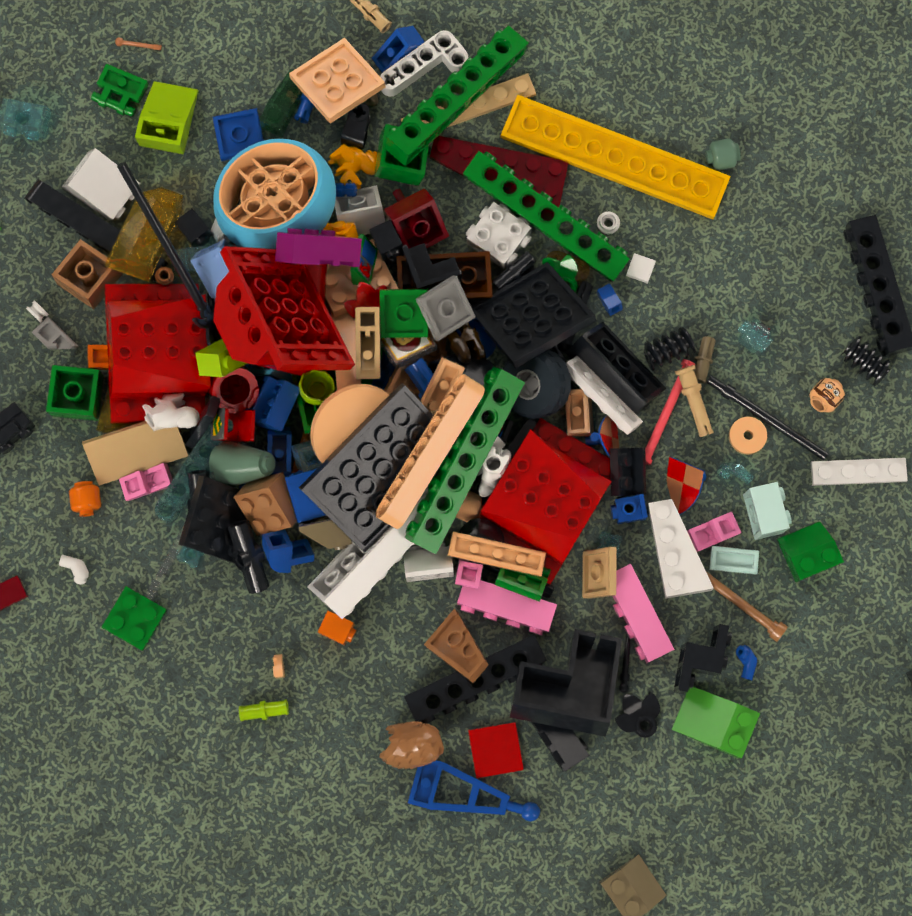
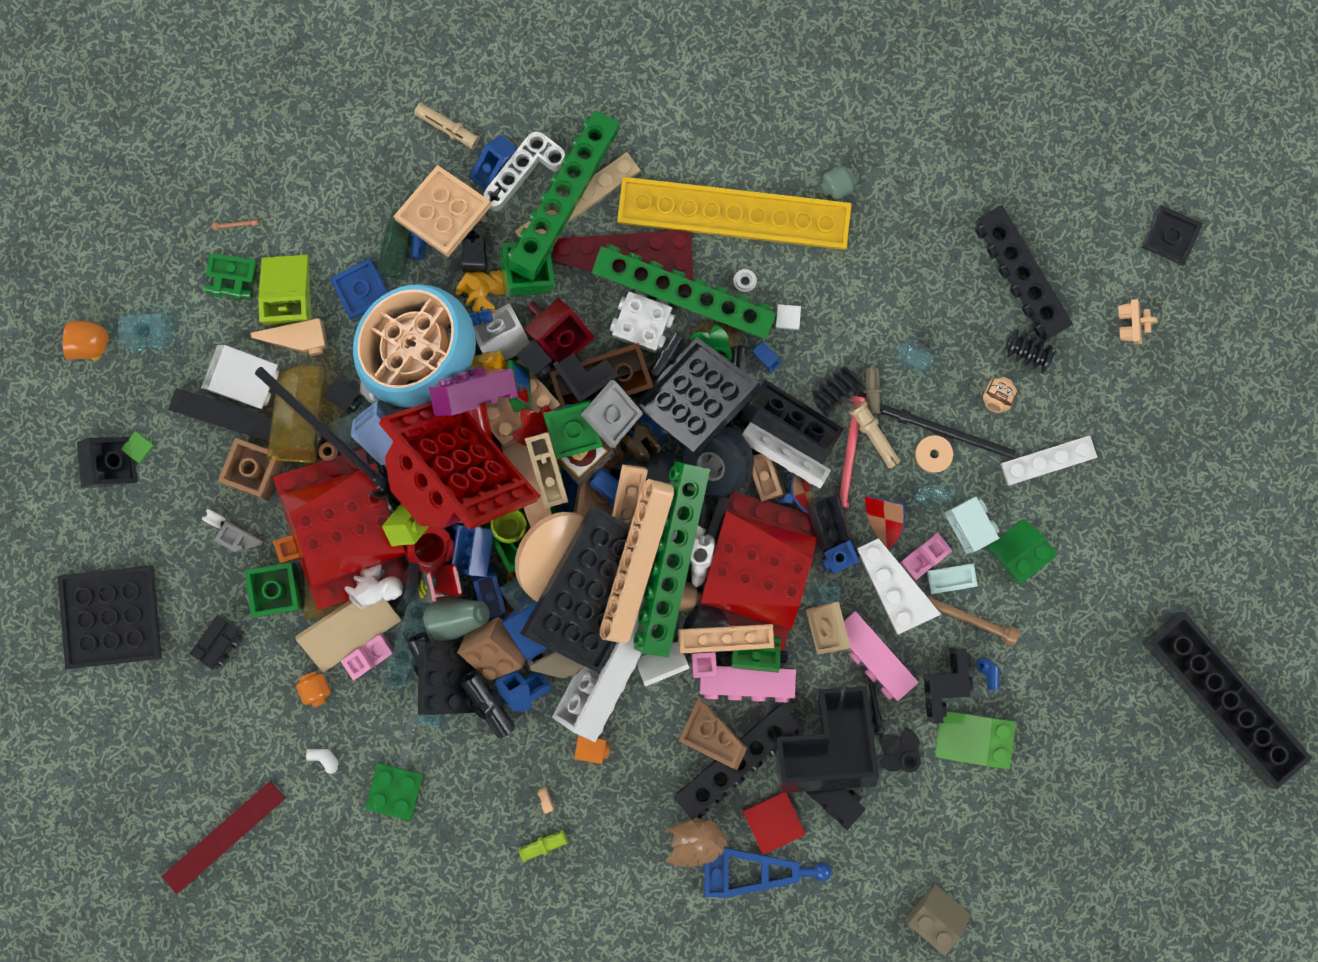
camera: 15 degrees left, 5 degrees up
(169, 163) = (301, 337): none -> light nougat slope

